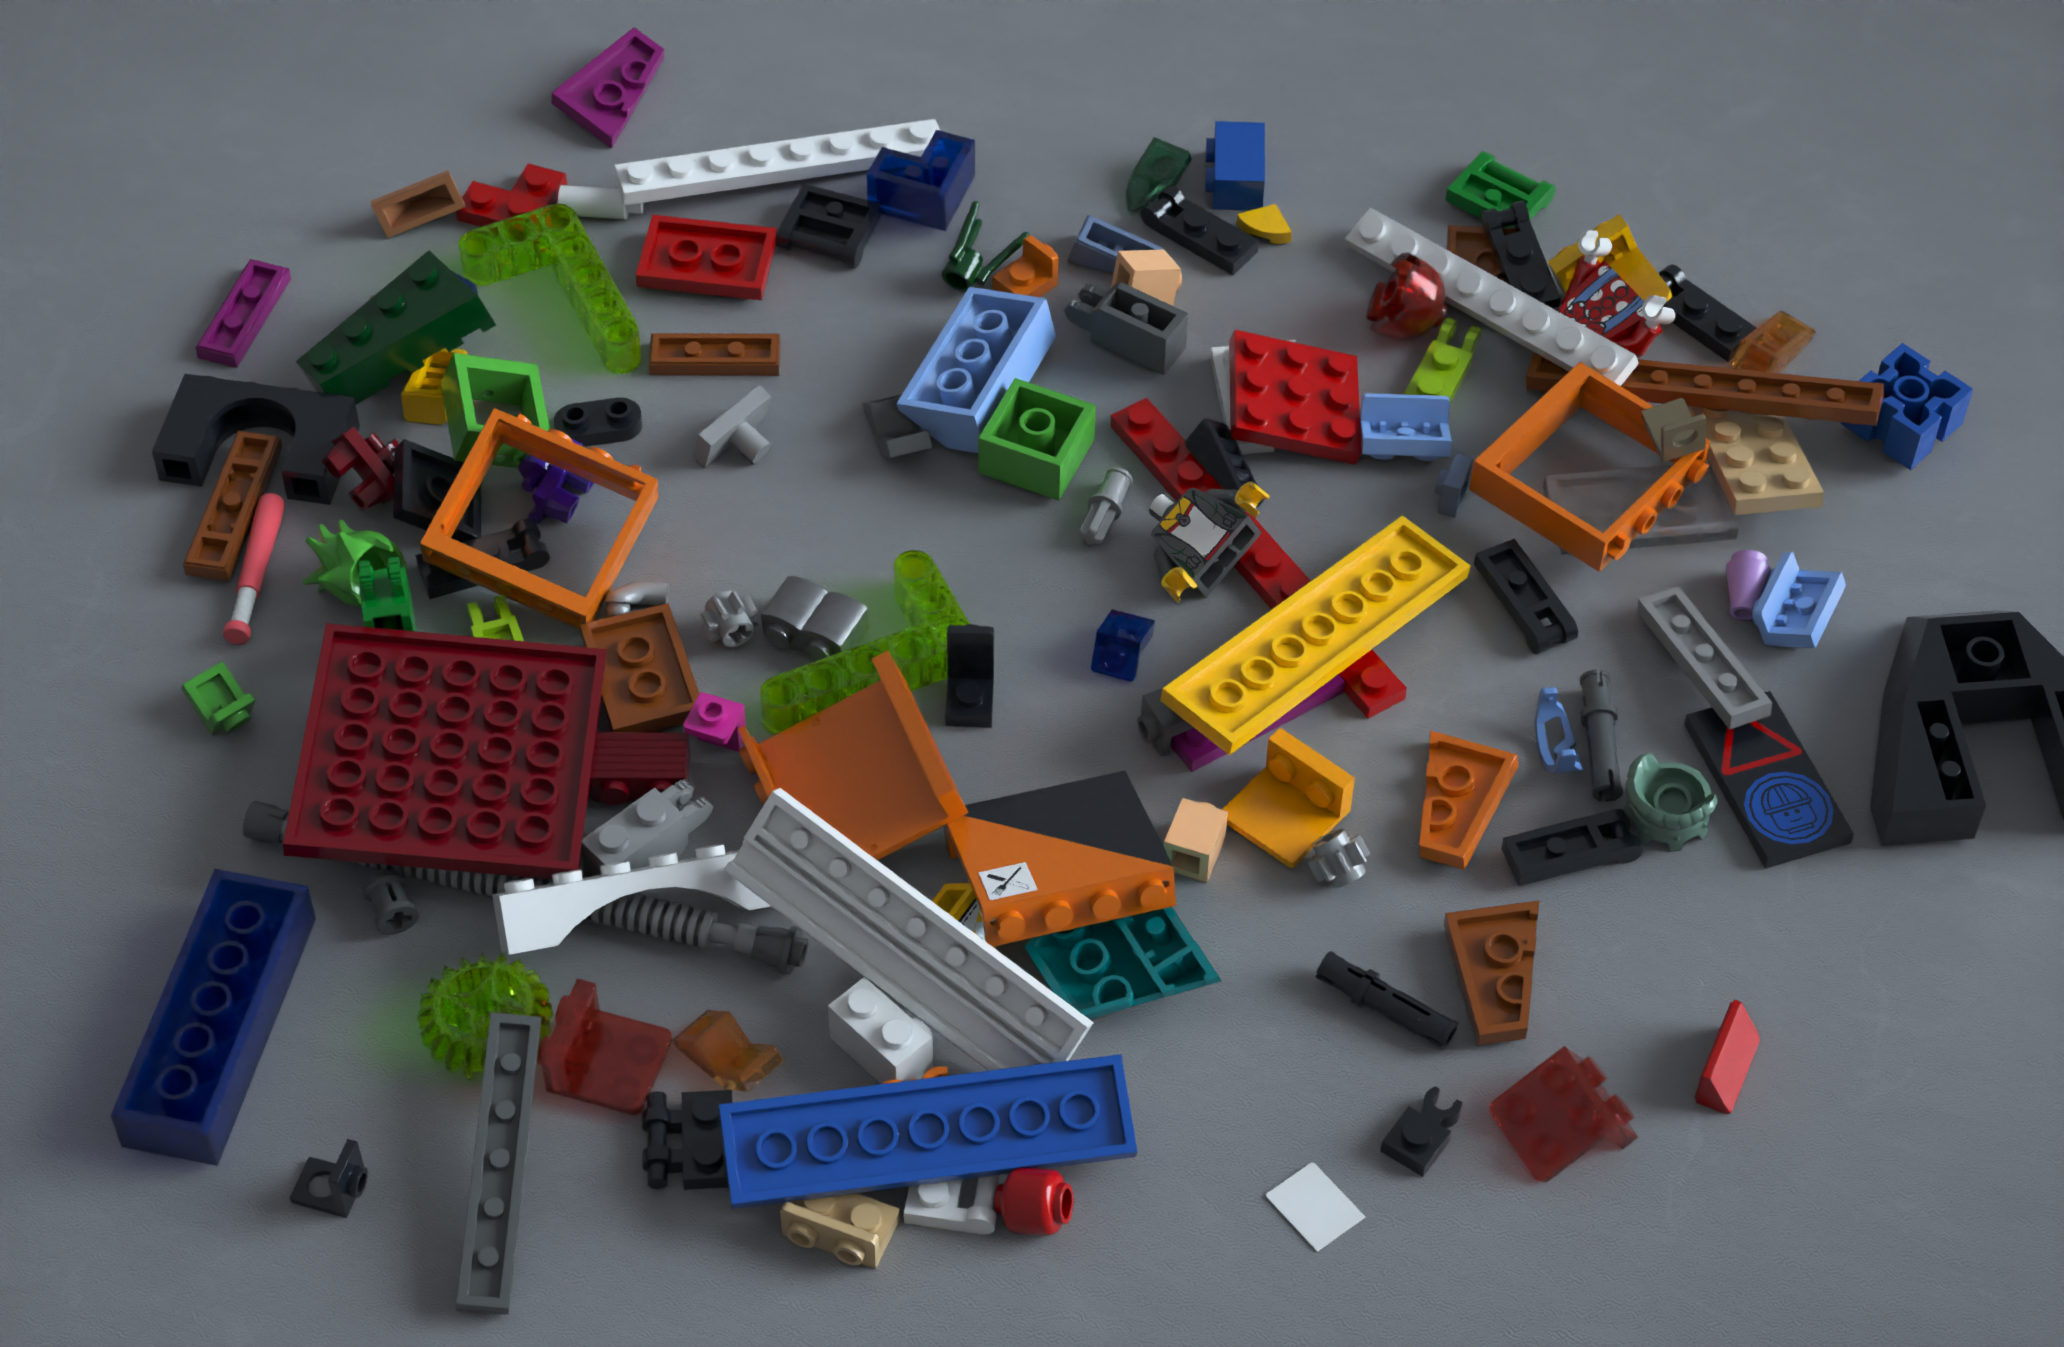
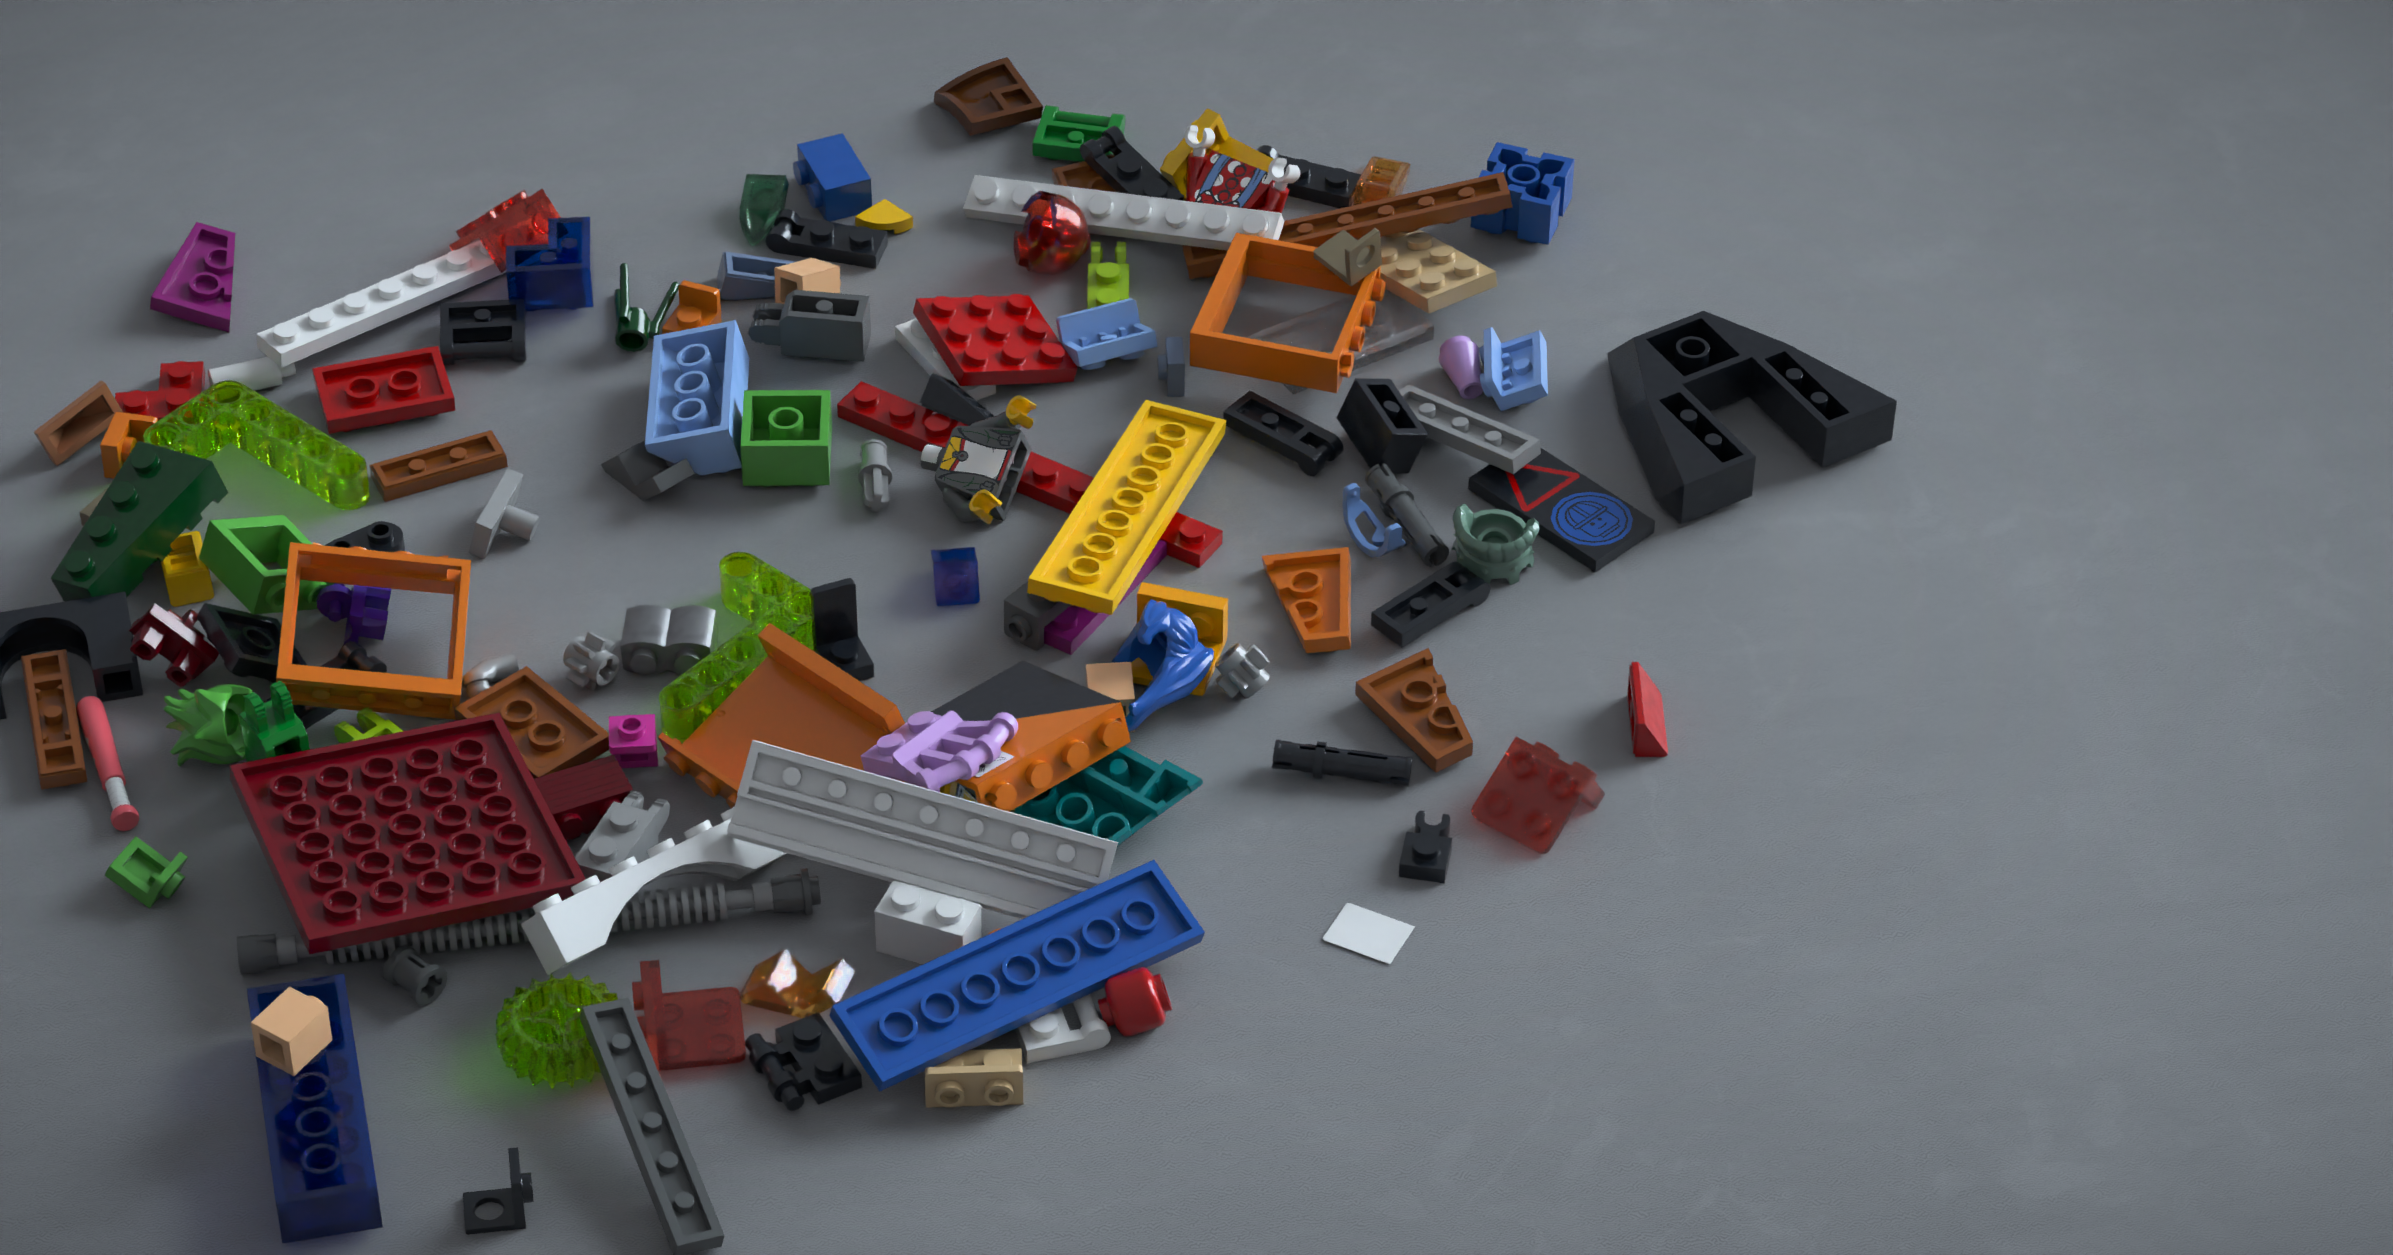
camera: 25 degrees left, 10 degrees down
(217, 936) = (291, 1031): none -> light nougat brick
(445, 231) = (121, 438): none -> orange bracket
(909, 125) = (511, 223): none -> clear red bracket
(973, 833) = (939, 748): none -> lavender plate
(1274, 825) = (1173, 655): none -> blue hair
(1433, 125) = (989, 98): none -> reddish brown plate
(1623, 626) = (1382, 424): none -> black brick

